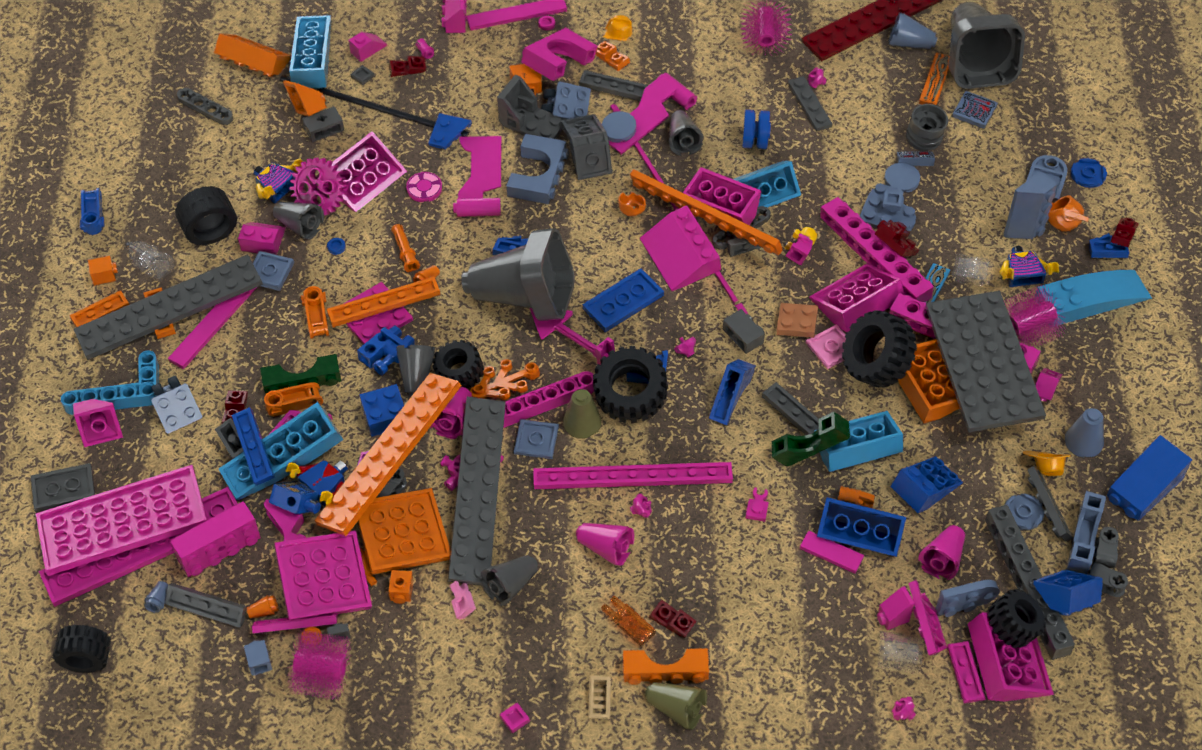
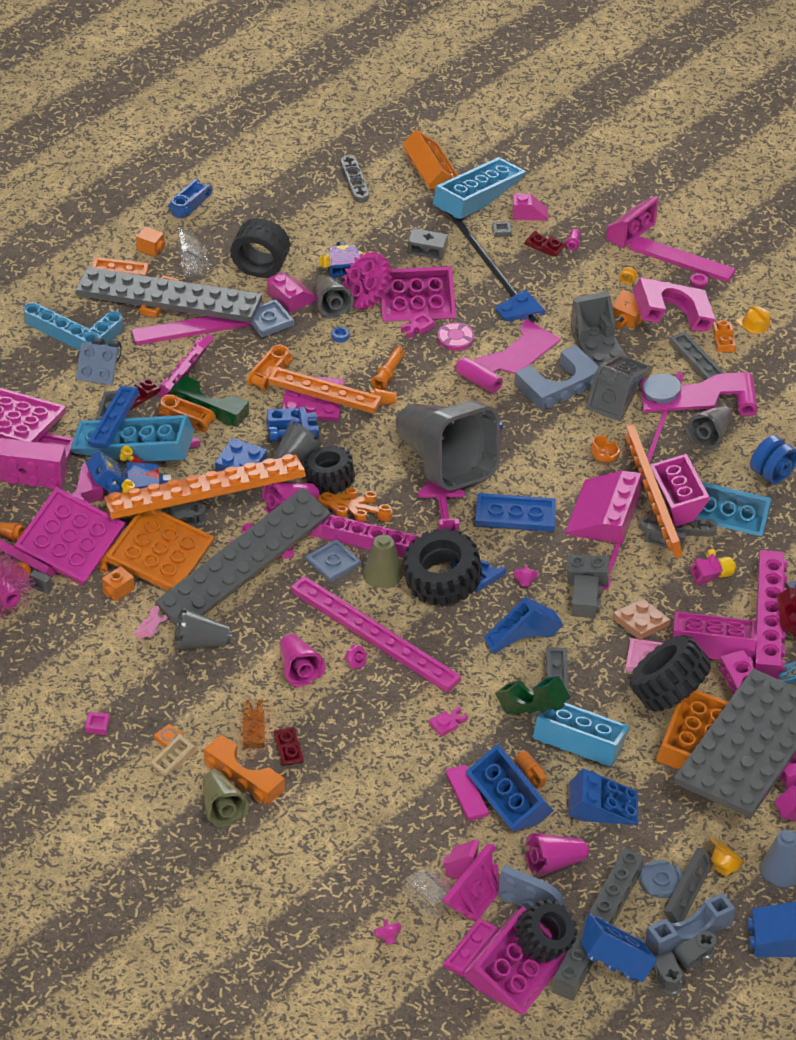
camera: 40 degrees right, 10 degrees down
(96, 422) = (32, 336): dark pink slope -> none
(255, 359) = (185, 364): none -> dark pink plate
(305, 99) = (430, 214): orange slope -> none
(387, 195) = (420, 323): none -> dark pink plate
(496, 52) = (625, 272): none -> light orange bush
(567, 100) = (642, 344): sand blue plate -> none
(578, 684) = (166, 735): none -> orange tile
(725, 307) = (589, 566): none -> dark grey brick

